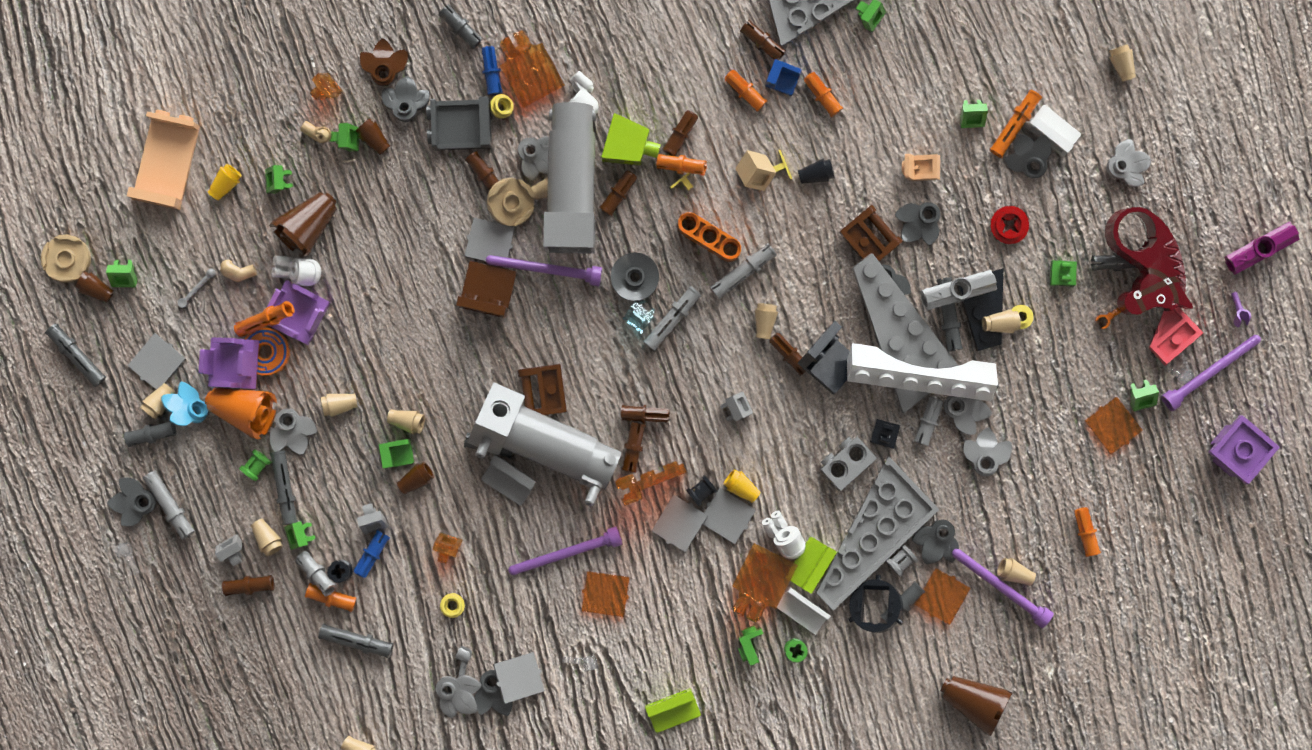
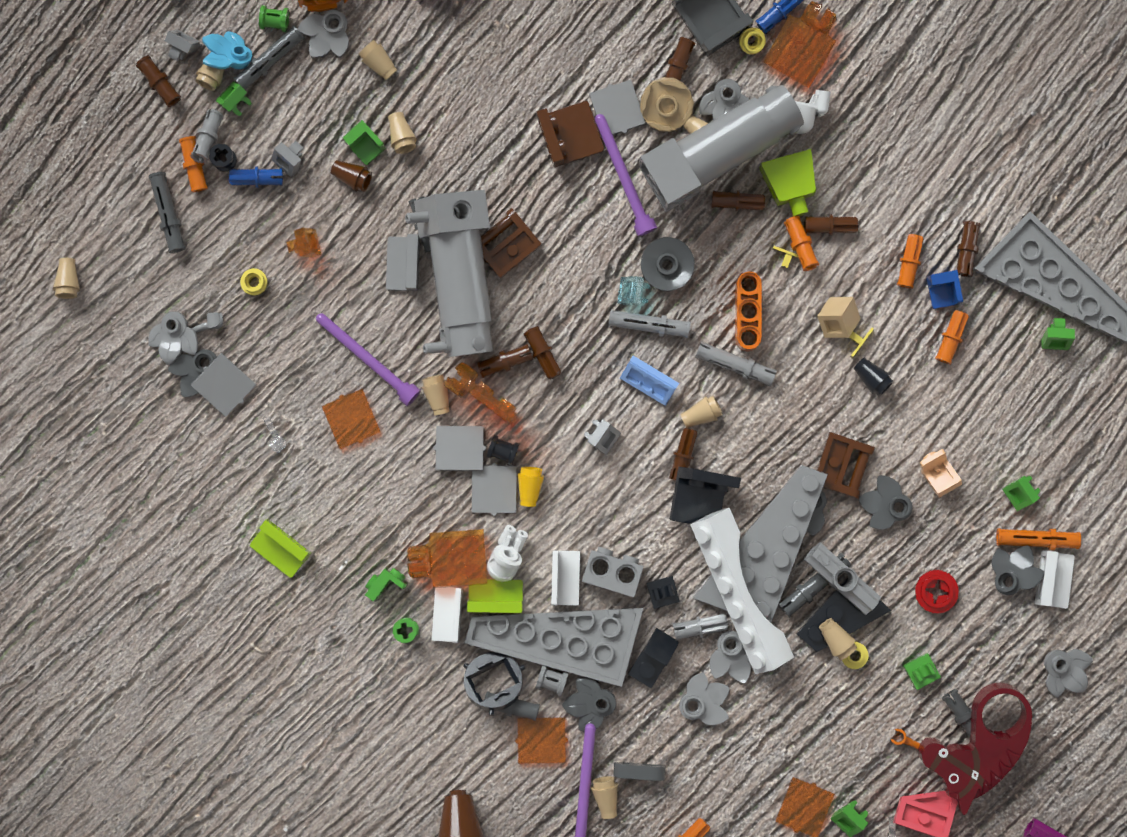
camera: 65 degrees right, 0 degrees up
(258, 517) = (226, 51): none -> medium azure plate
(626, 515) = (436, 394): none -> tan cone
(716, 345) = (649, 380): none -> light blue plate
(829, 502) = (565, 578): none -> white panel
(931, 471) = (653, 658): none -> black slope
(1011, 535) = (639, 771): none -> dark grey beam

